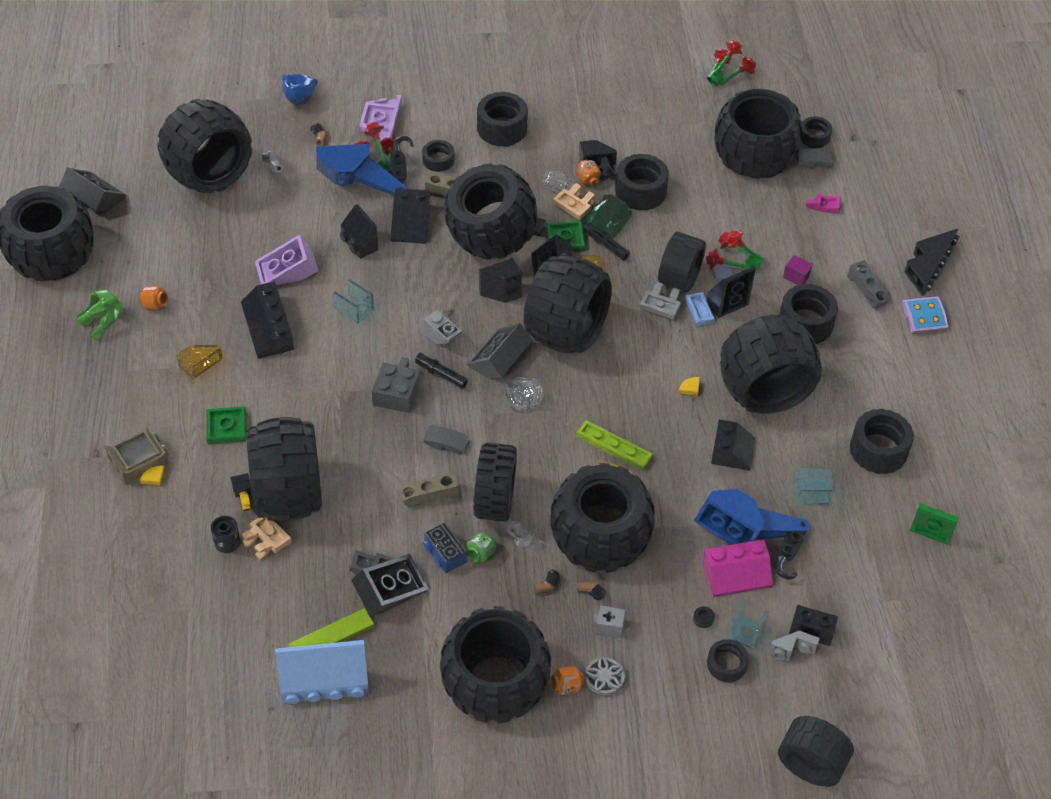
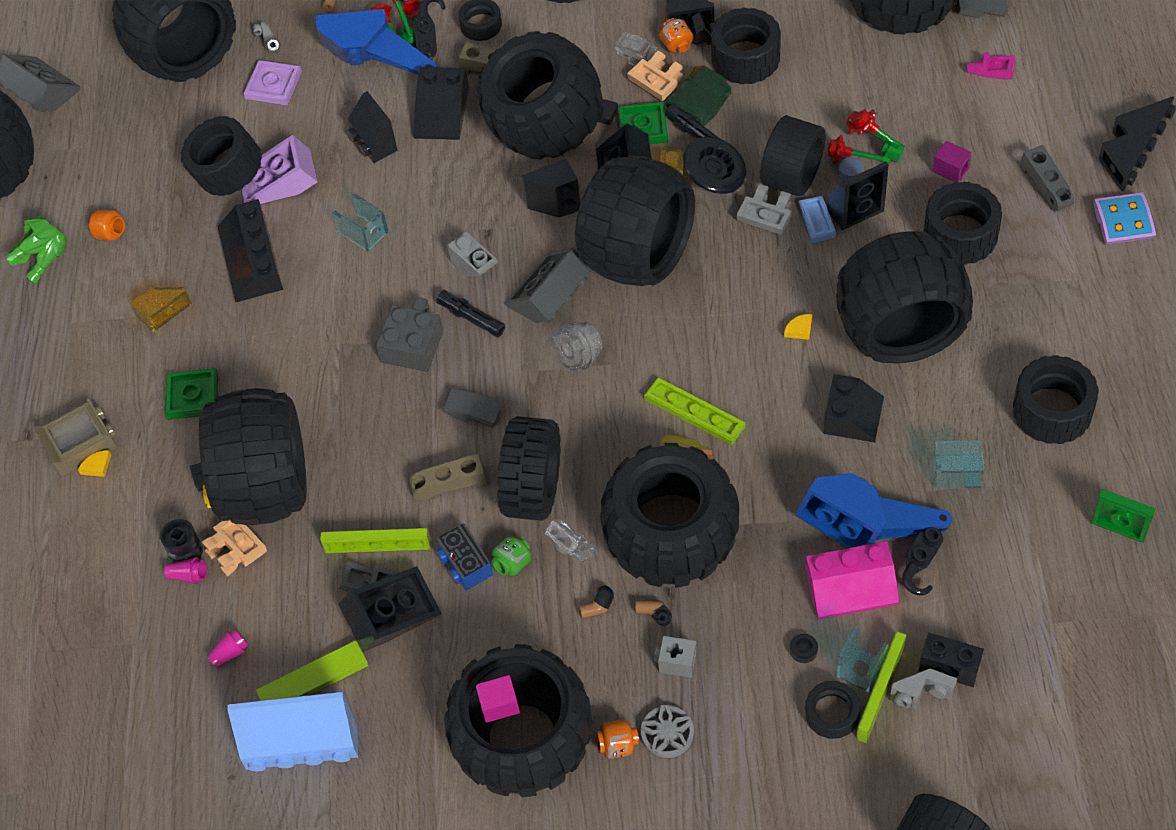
camera: 10 degrees right, 5 degrees up
(231, 555) = (188, 570): none -> dark pink cone
(234, 237) = (208, 142): none -> black tyre
(267, 611) = (228, 648): none -> dark pink cone
(278, 196) = (272, 82): none -> lavender tile
(376, 535) = (376, 540): none -> lime tile
(484, 644) = (497, 698): none -> dark pink panel
(623, 267) = (707, 165): none -> black wheel
(762, 645) = (881, 687): none -> lime tile

